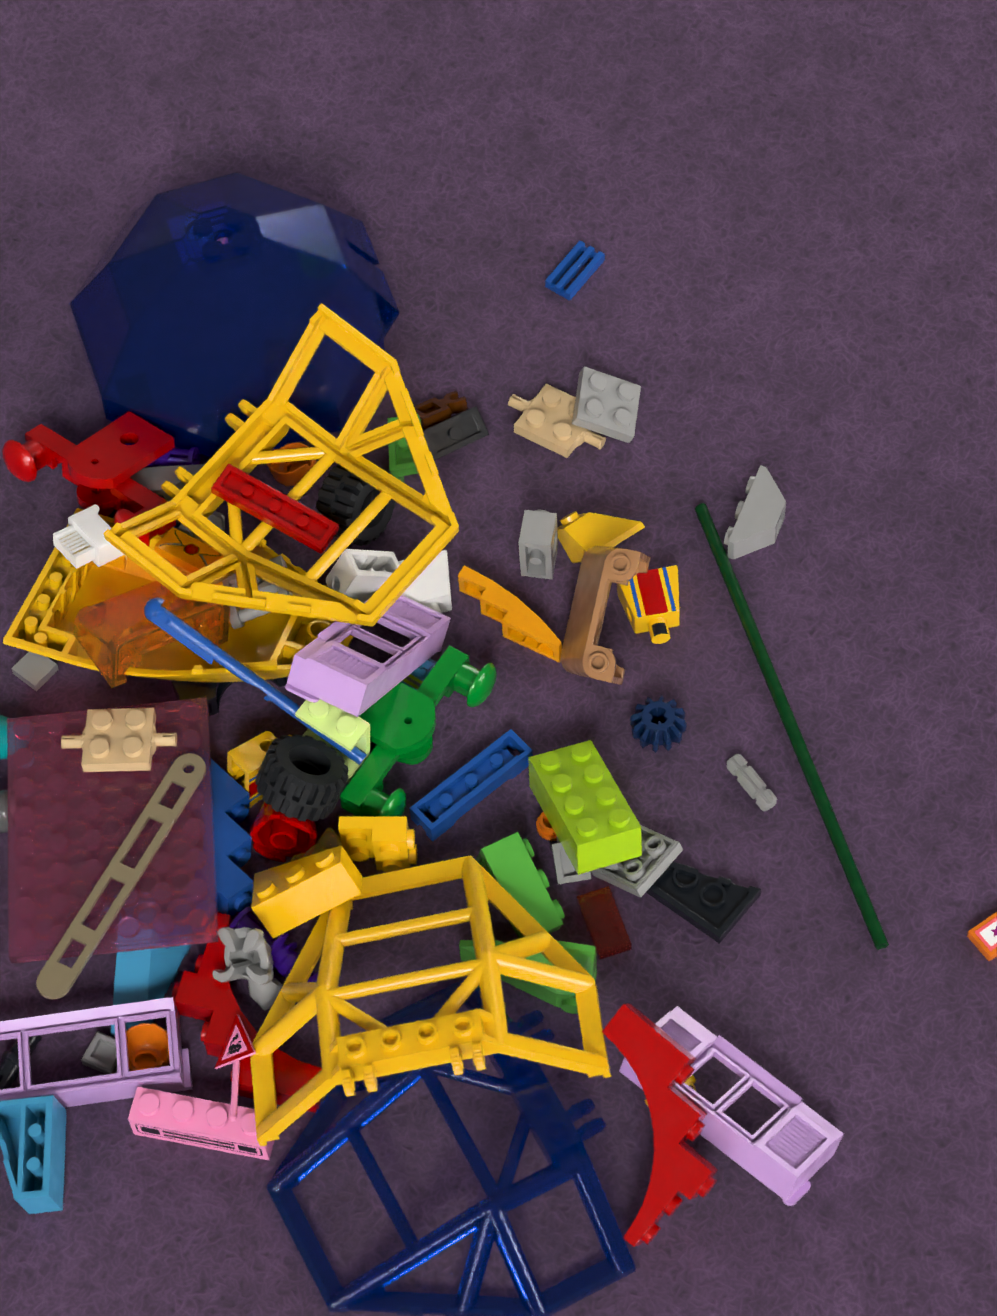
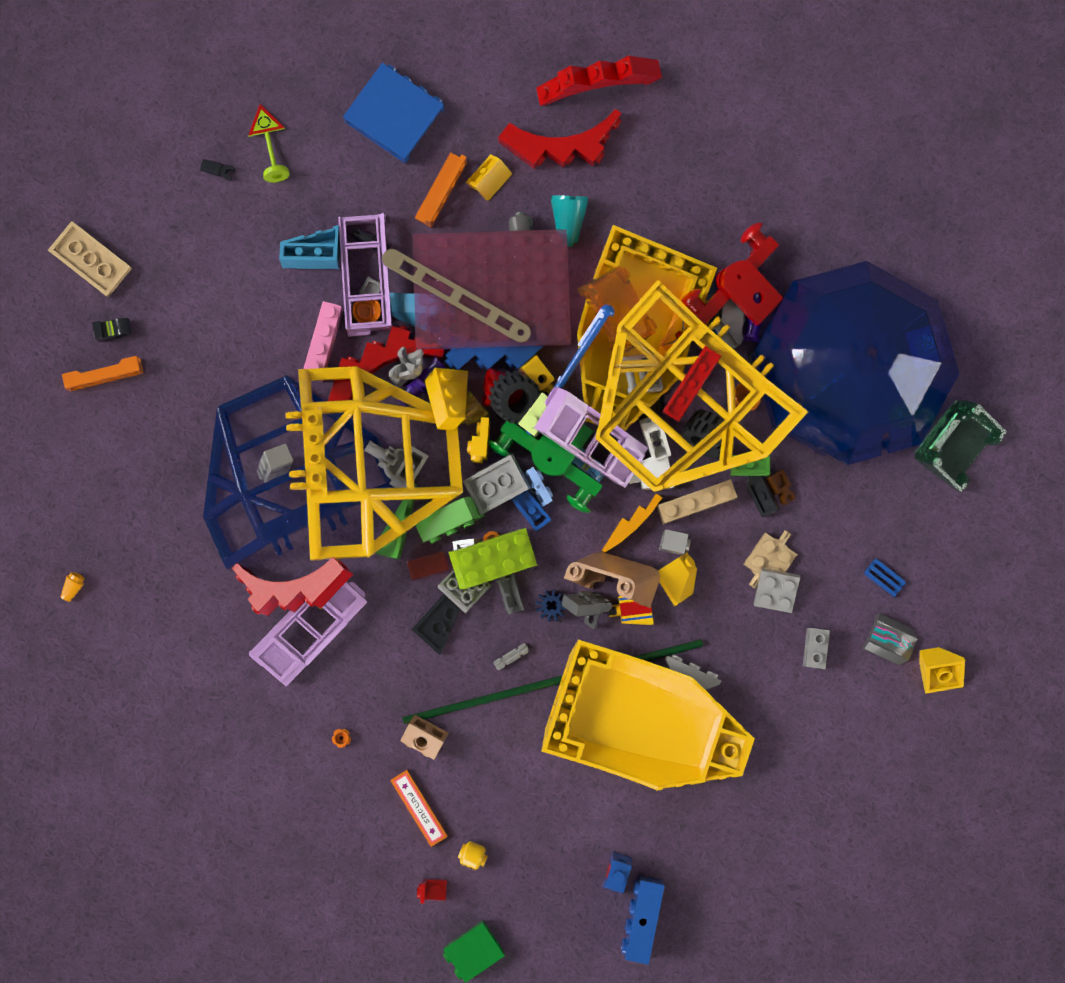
camera: 90 degrees right, 25 degrees up
(84, 539) = (686, 274): white piece -> none
(119, 740) = (541, 292): tan plate -> none
(235, 1048) = (356, 360): piece -> none
(335, 175) = (958, 442): none -> clear green windscreen
(421, 952) = (393, 462): none -> light grey brick
(434, 1170) = (274, 463): none -> light grey brick
(453, 808) = (496, 484): none -> light grey plate
(454, 746) = (542, 493): none -> light blue plate
(476, 534) = (697, 501): none -> tan brick
(649, 786) = (511, 594): none -> dark grey hinge
(654, 660) = (587, 604): none -> dark grey piece
(671, 258) = (890, 640): none -> dark grey slope
(694, 347) = (816, 648): none -> light grey brick
(711, 188) = (941, 670): none -> yellow slope
(838, 571) = (642, 722): none -> yellow windscreen
(893, 912) = (421, 728): none -> medium nougat brick
(929, 1036) = (336, 738): none -> orange plate

